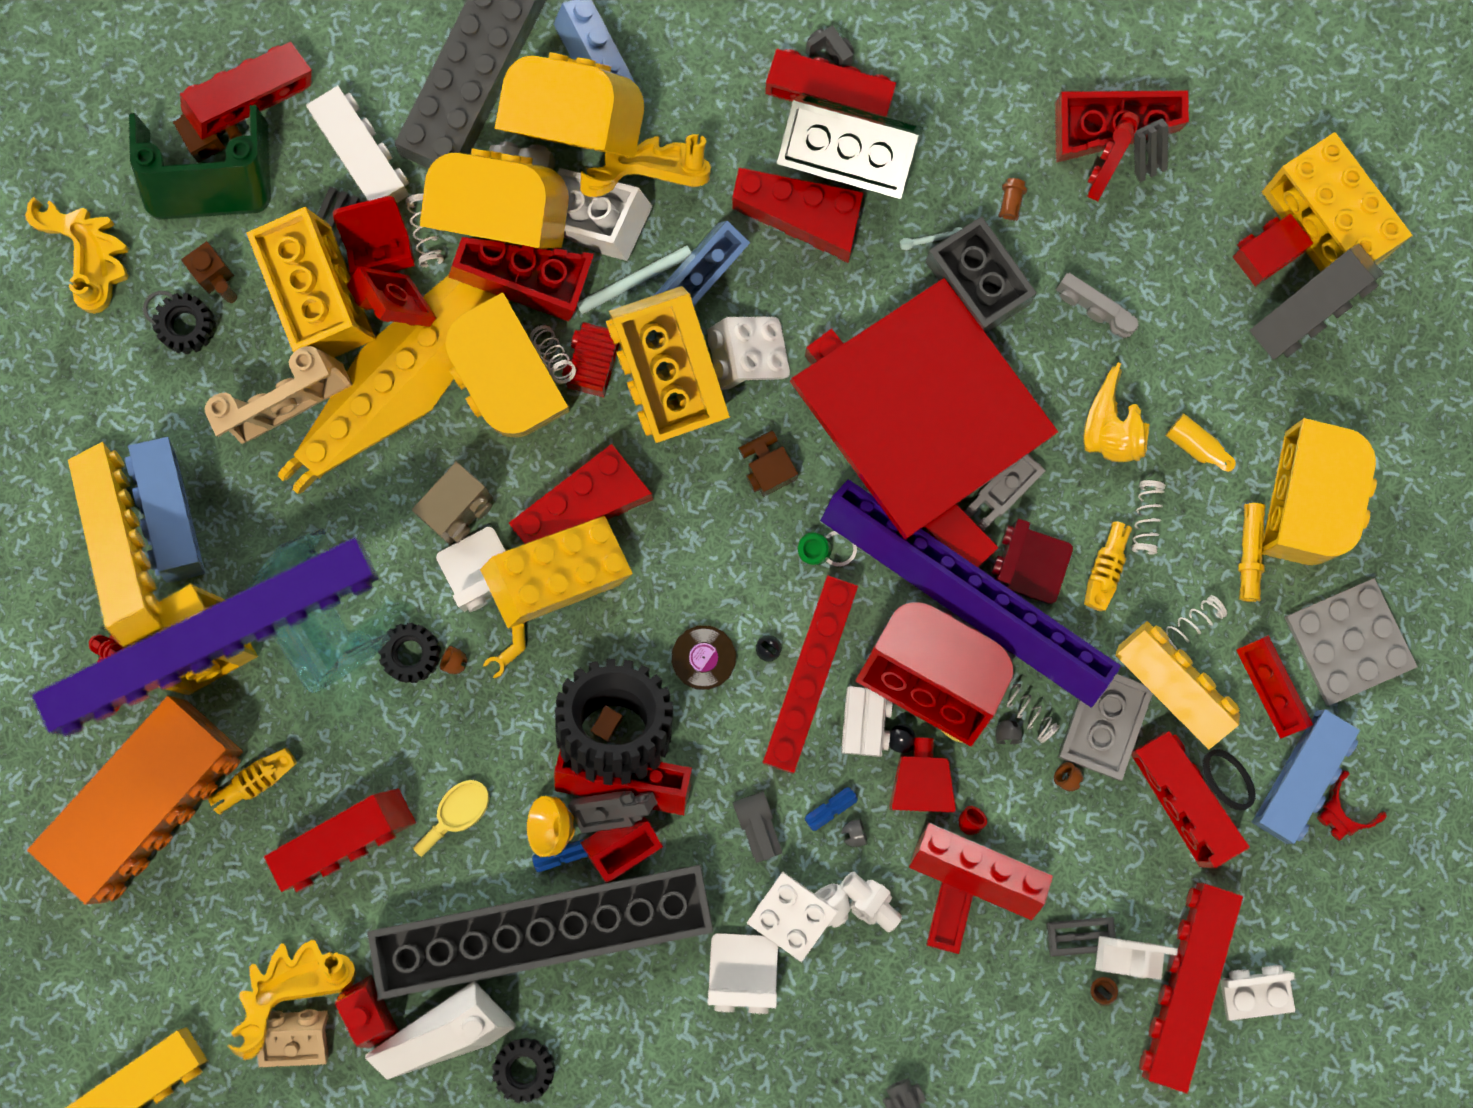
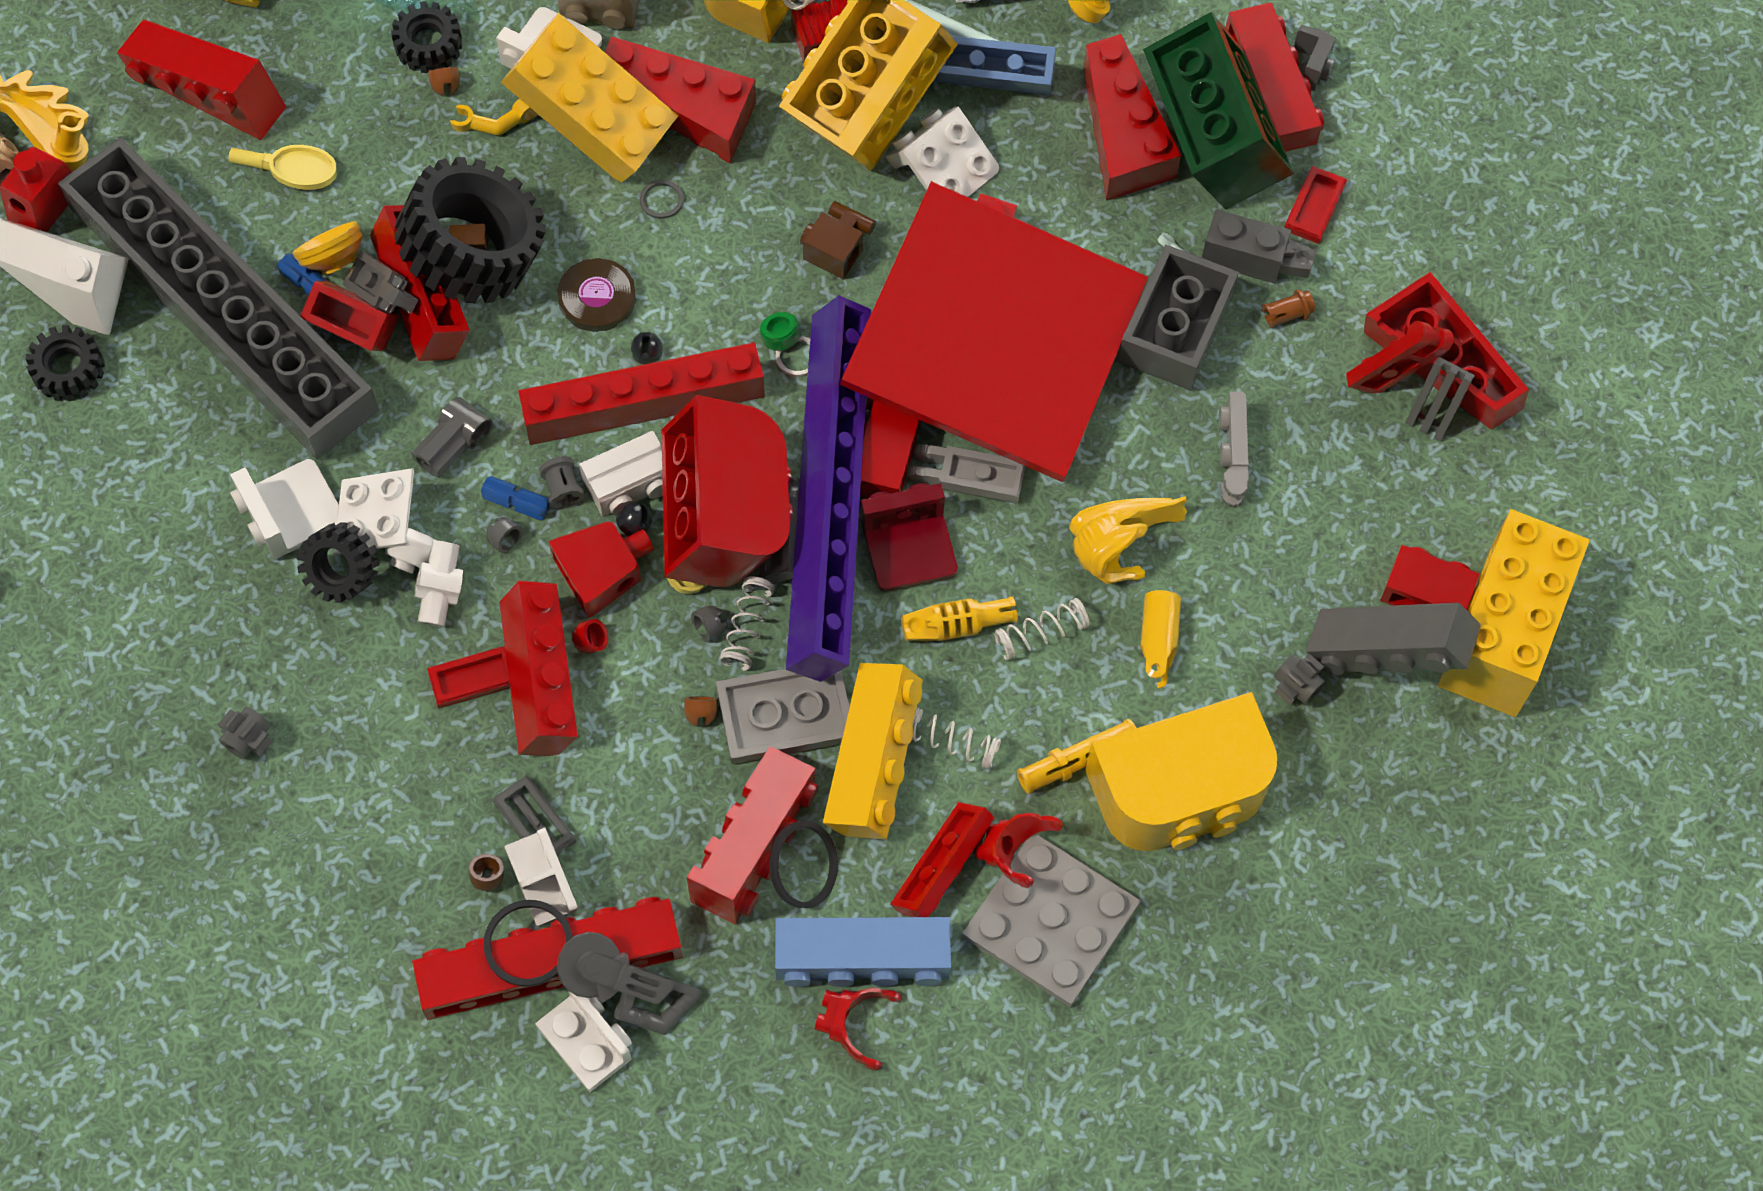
camera: 55 degrees right, 15 degrees down
(652, 549) = (661, 215): none -> dark grey piece
(811, 951) = (321, 573): none -> black tyre
(842, 771) = (561, 482): none -> dark grey bush
(942, 127) = (1315, 204): none -> red tile
(957, 191) = (1255, 248): none -> dark grey hinge
(1214, 1001) = (494, 922): none -> black piece
(1250, 945) = (594, 967): none -> dark grey piece
(1287, 644) = (1007, 836): none -> red helmet
(1288, 376) = (1299, 679): none -> dark grey gear

